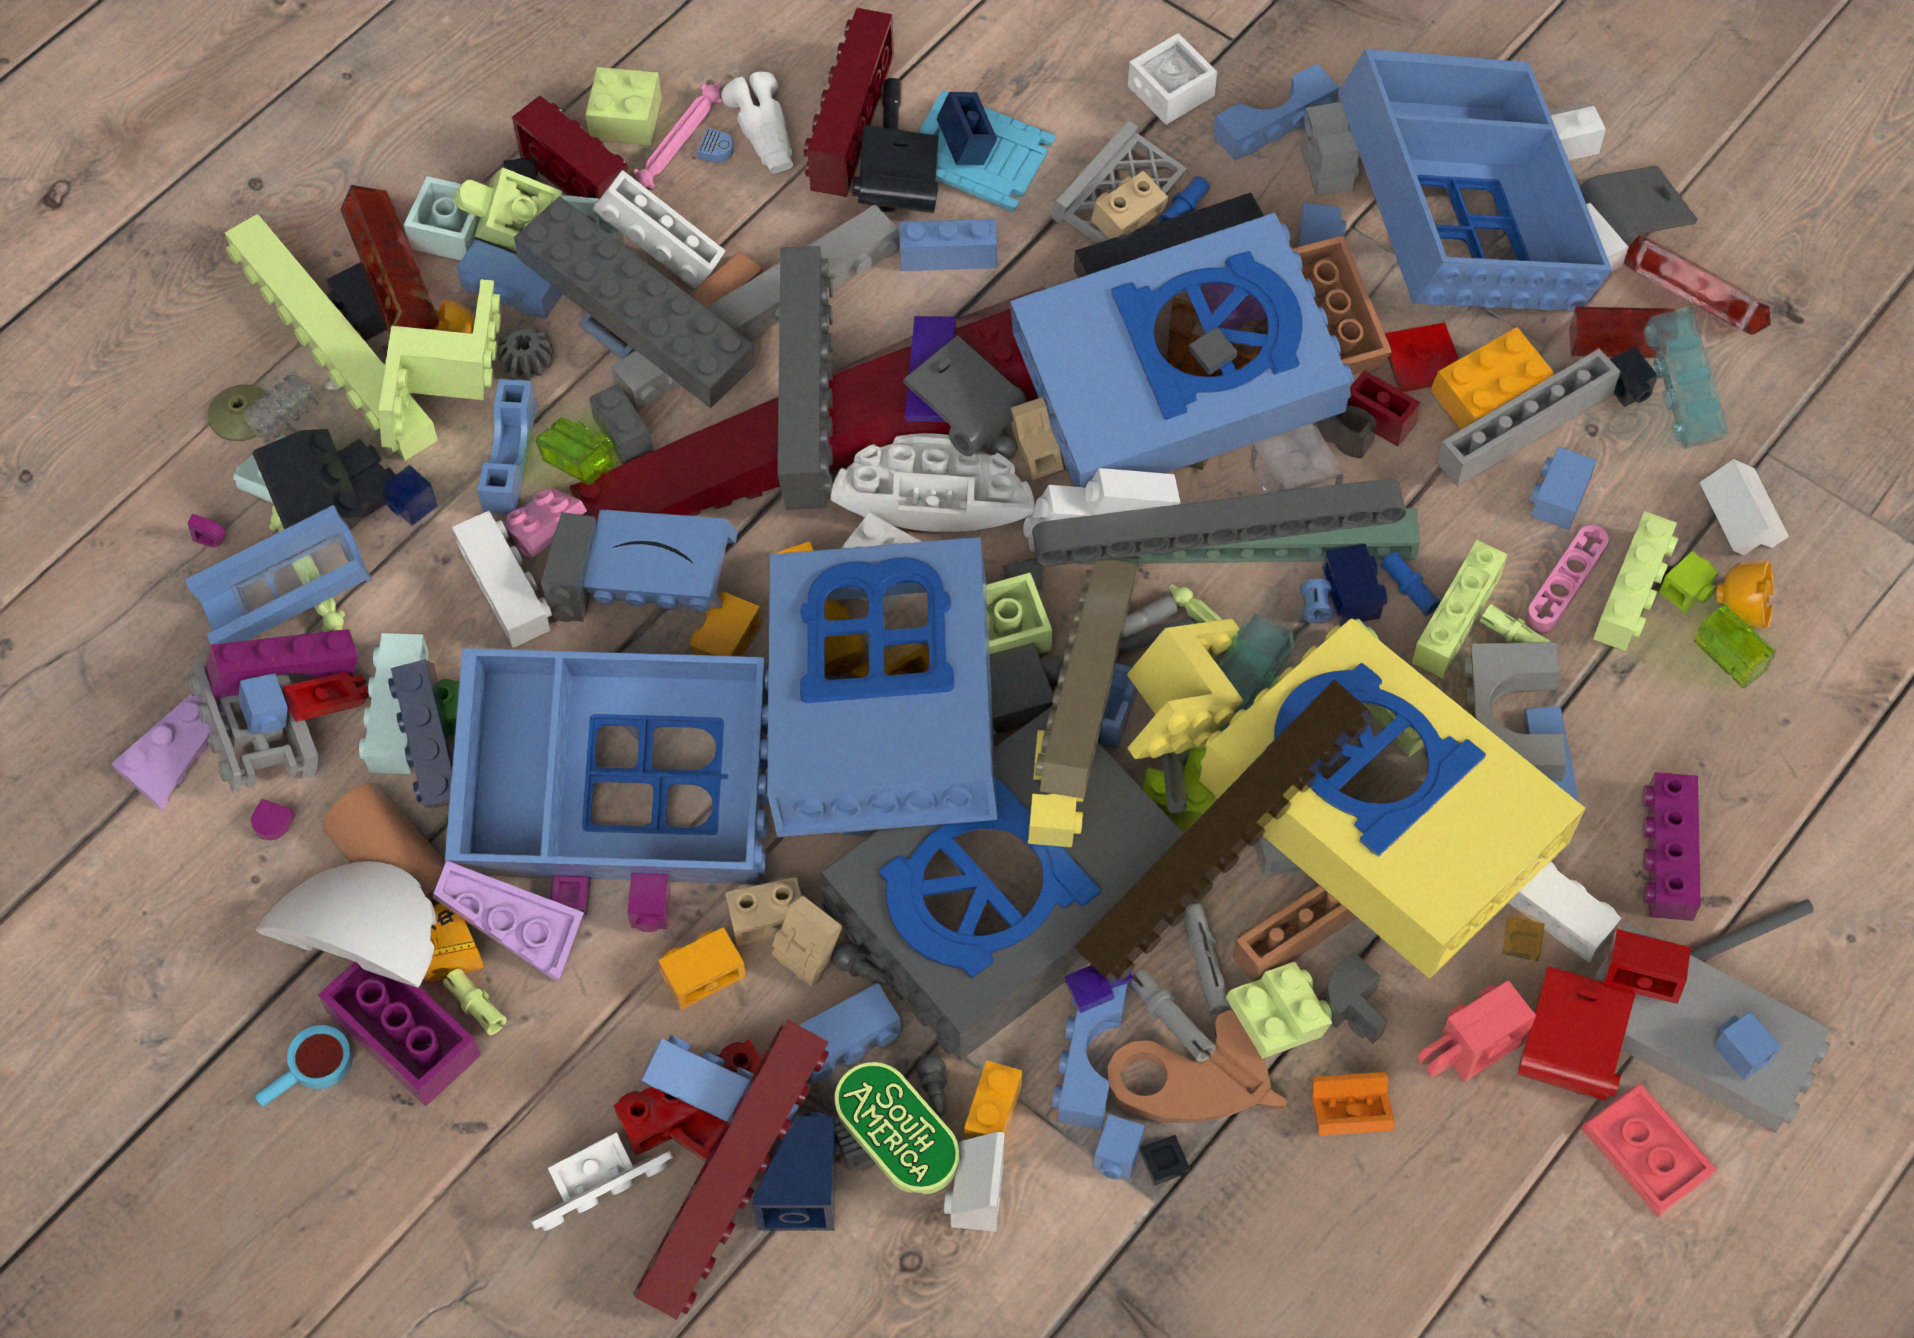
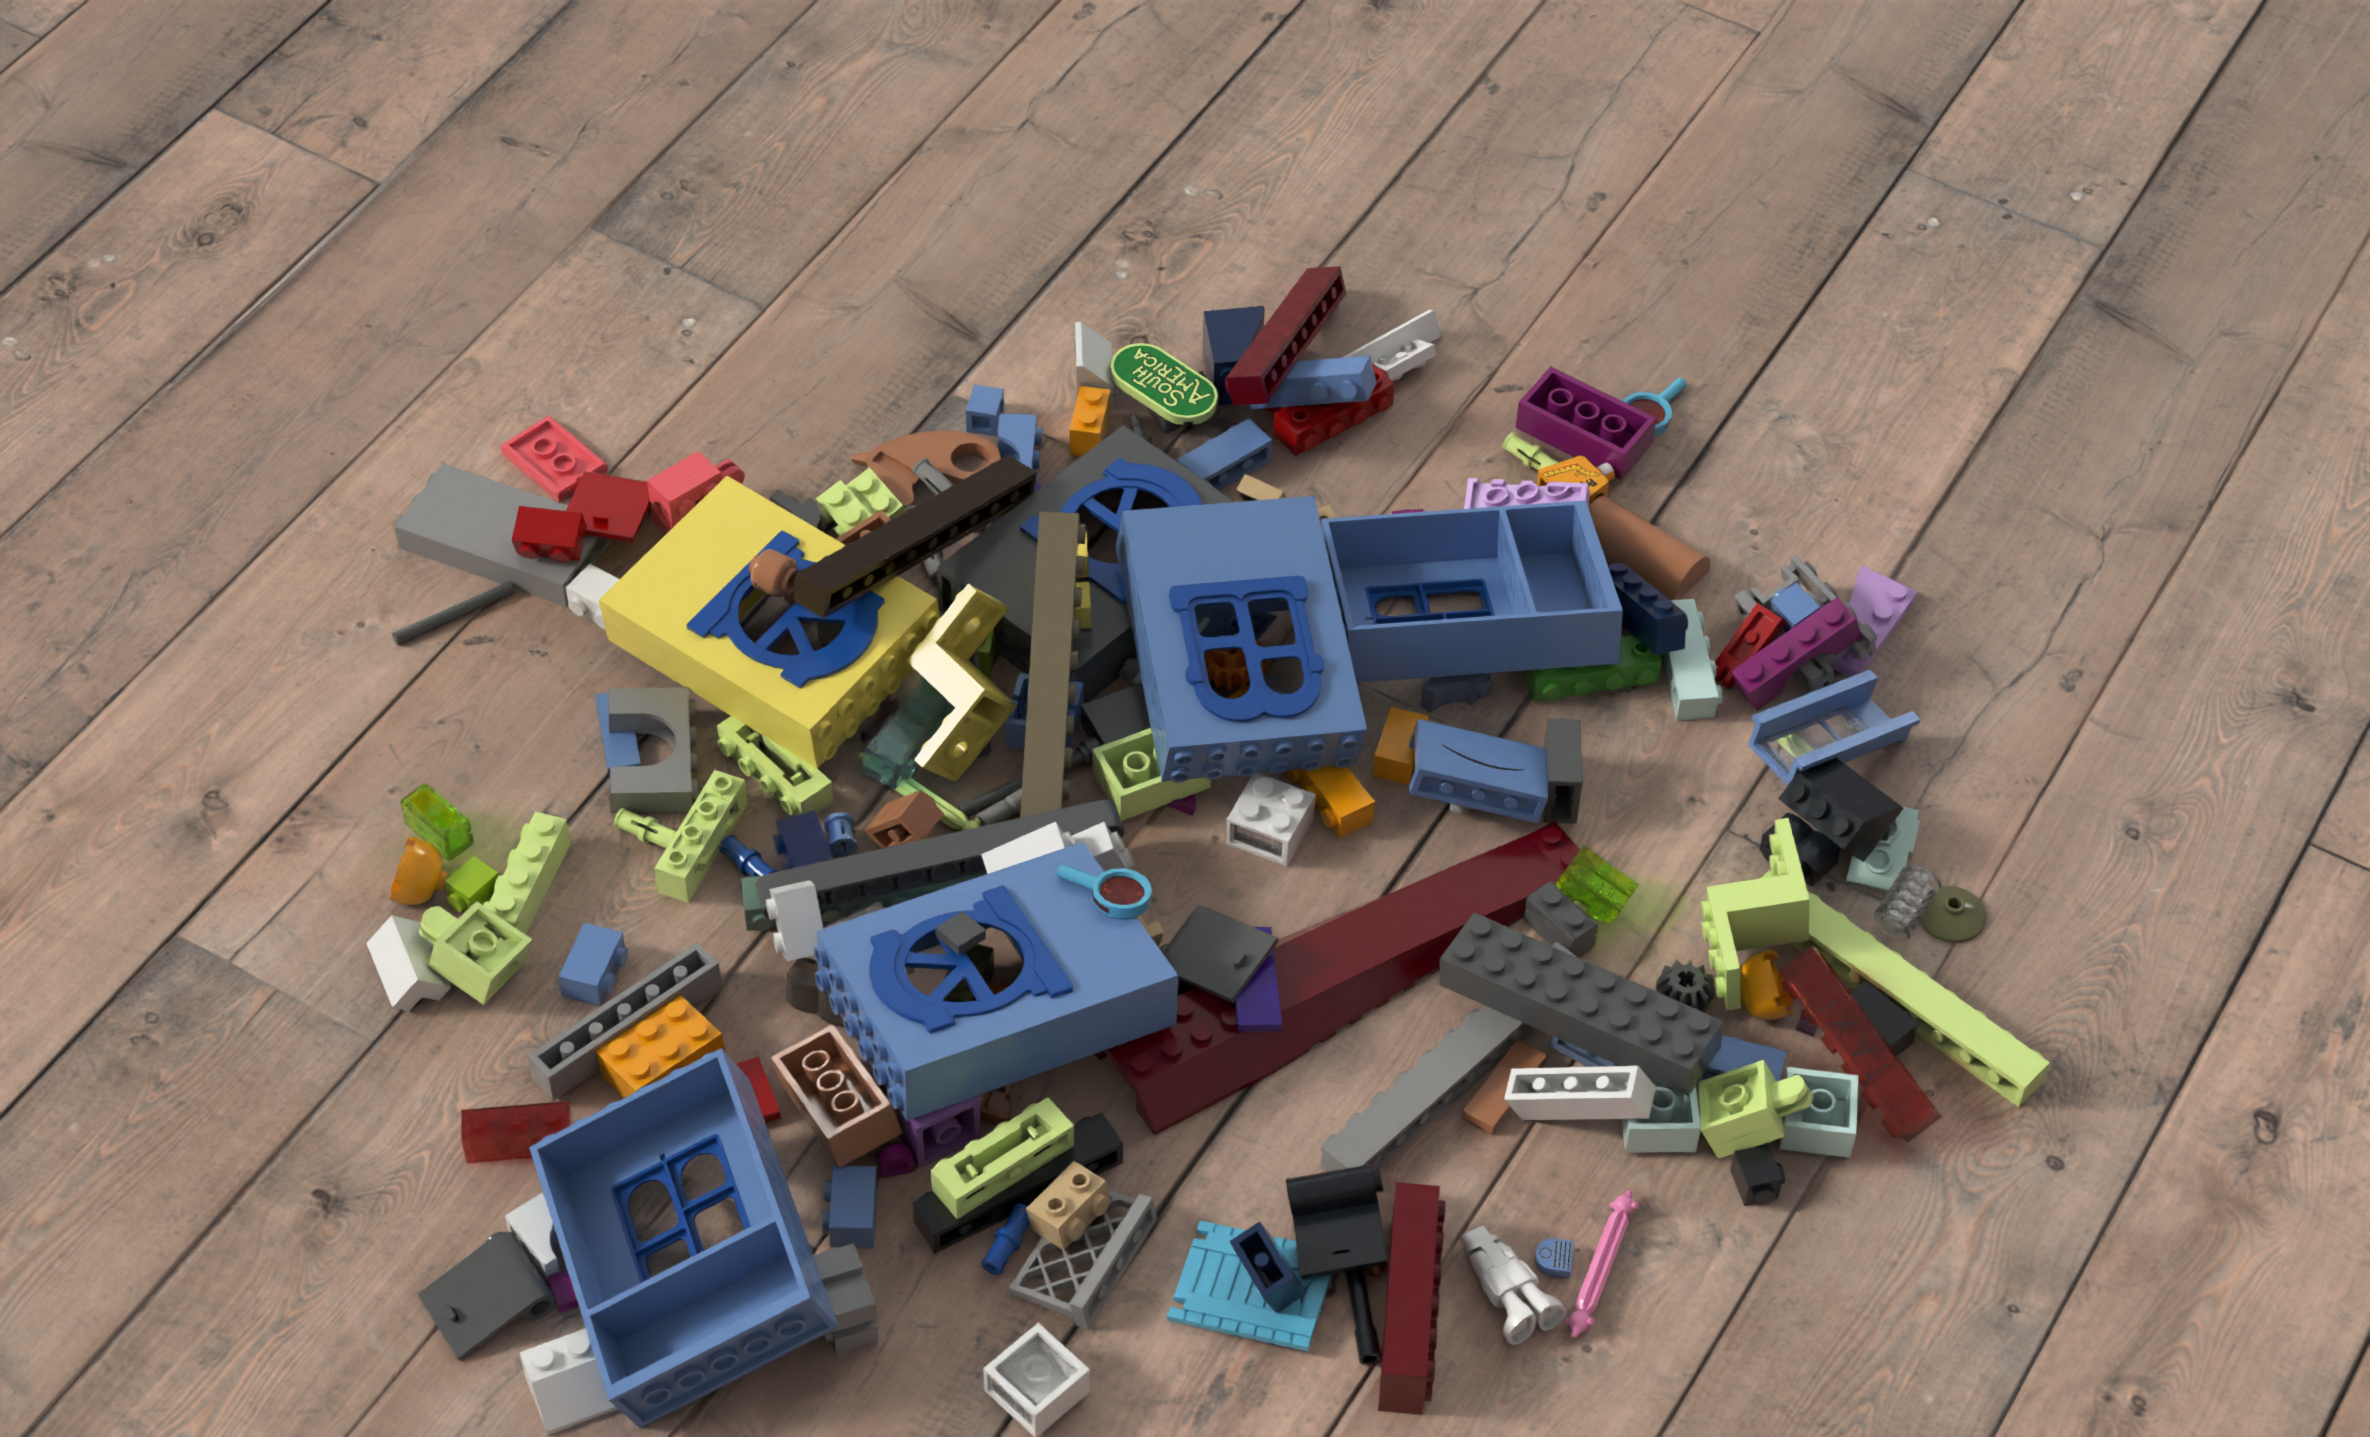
camera: 170 degrees right, 10 degrees down
(206, 531) = (1927, 785): magenta tile -> none
(271, 820) = (1759, 568): magenta tile -> none
(361, 914) = (1648, 468): white brick -> none
(410, 495) = (1743, 833): clear blue brick -> none
(502, 579) = (1631, 766): white brick -> none
(513, 424) = (1660, 861): medium blue arch -> none
(536, 523) = (1606, 820): bright pink plate -> none
(565, 151) = (1705, 1188): dark red brick -> none
(624, 105) = (1673, 1280): yellowish green brick -> none
(701, 967) = (1352, 490): light orange brick -> none
(805, 378) = (1381, 936): dark grey brick -> none
(932, 486) = (1256, 890): white brick -> none
(948, 245) = (1264, 1151): medium blue brick -> none
(1024, 567) = (1135, 829): black tile -> none
(1054, 396) = (1115, 892): none -> medium azure piece
(1164, 1160) = (947, 414): black tile -> none
(1186, 223) = (1002, 1157): none -> yellowish green brick
(1246, 129) = (943, 1336): medium blue arch -> none
(1252, 581) = (905, 820): none -> nougat brick
(1351, 1103) = (797, 452): orange bracket -> none
(1366, 453) = (796, 919): none -> white brick
(1390, 774) = (773, 573): none -> nougat head
(1391, 407) = (779, 1012): dark red brick -> none
(1564, 576) = (589, 886): bright pink beam -> none
(1635, 377) = (513, 1083): black brick -> none
(1672, 846) = (513, 662): magenta brick -> none
(1686, 377) = (458, 1059): clear light blue brick -> none
(1692, 485) = (478, 935): none -> yellowish green brick
(1697, 285) = (419, 1190): clear red brick -> none
(1746, 1044) = (469, 492): medium blue brick -> none

